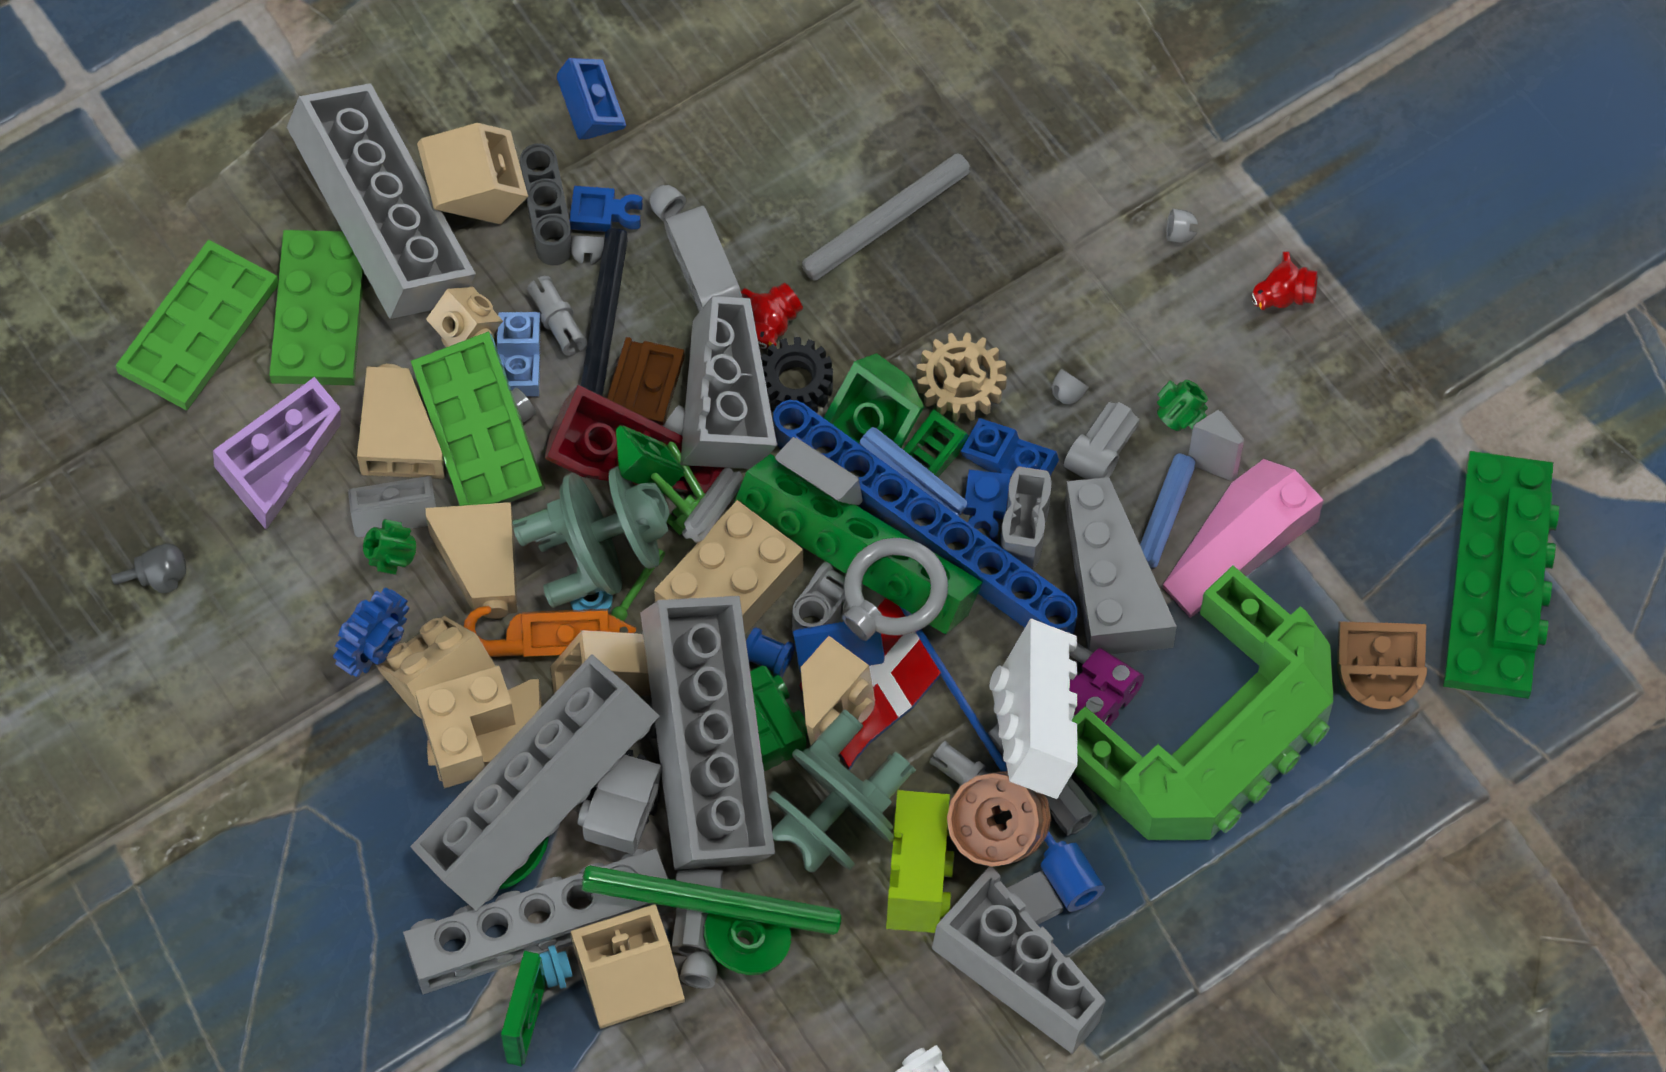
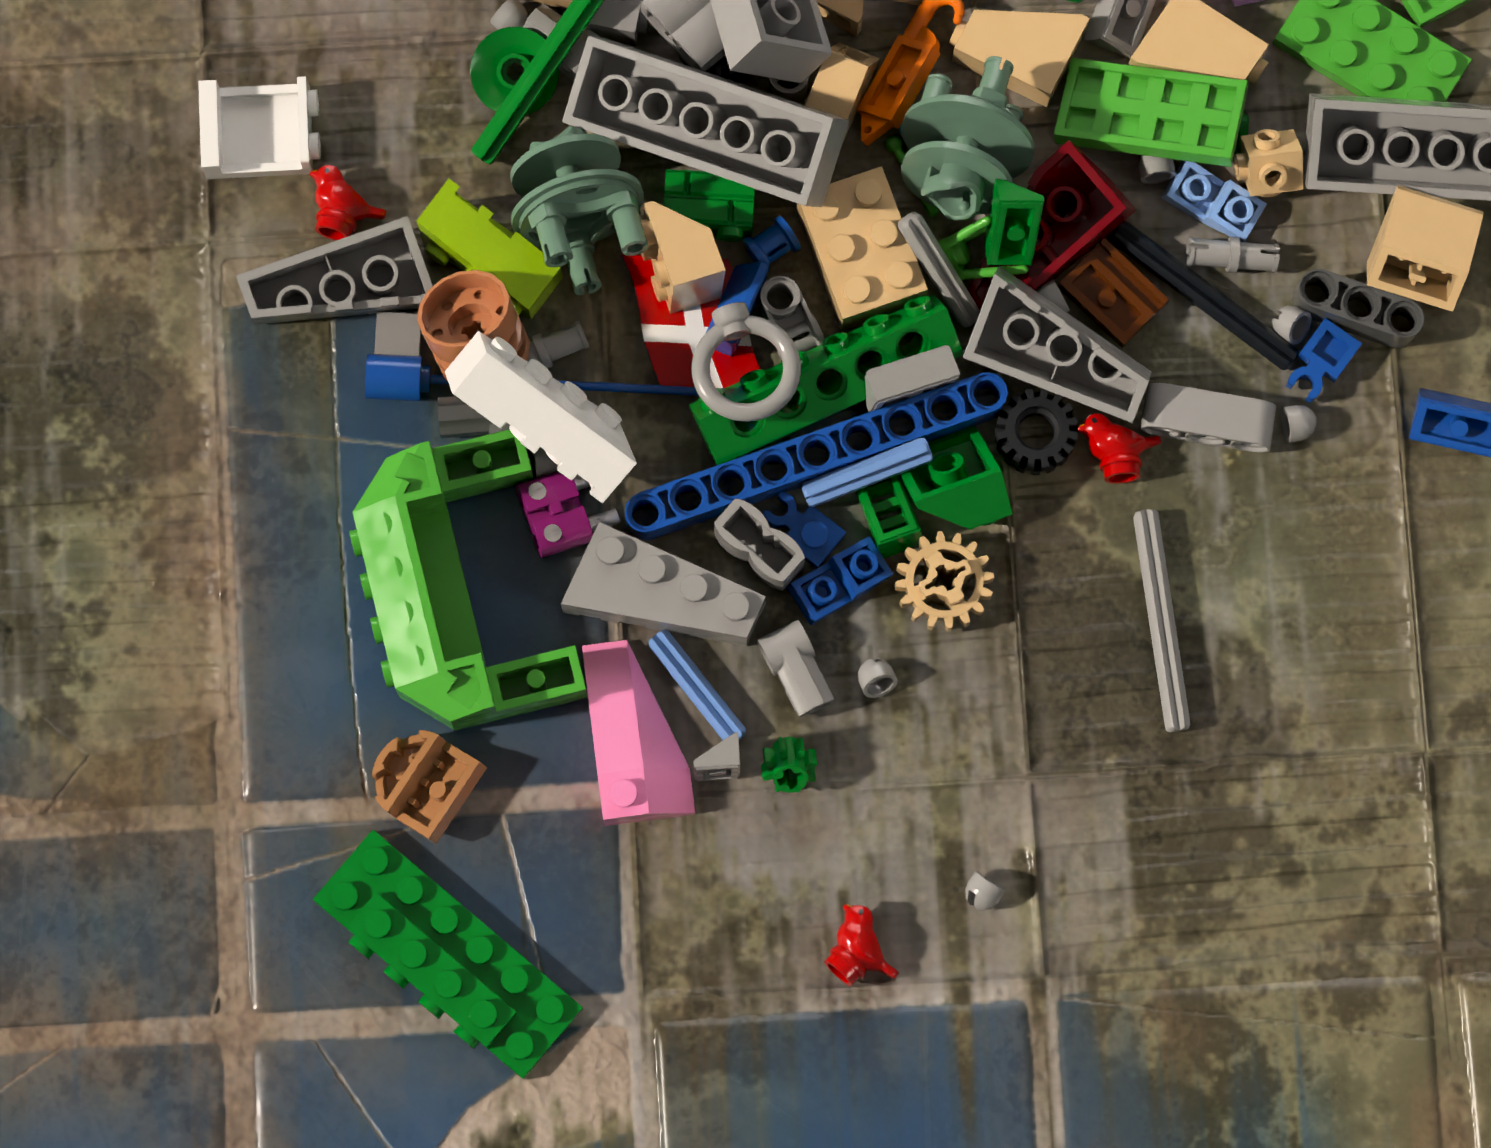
camera: 120 degrees right, 15 degrees up
(953, 1010) = (339, 204): none -> red animal

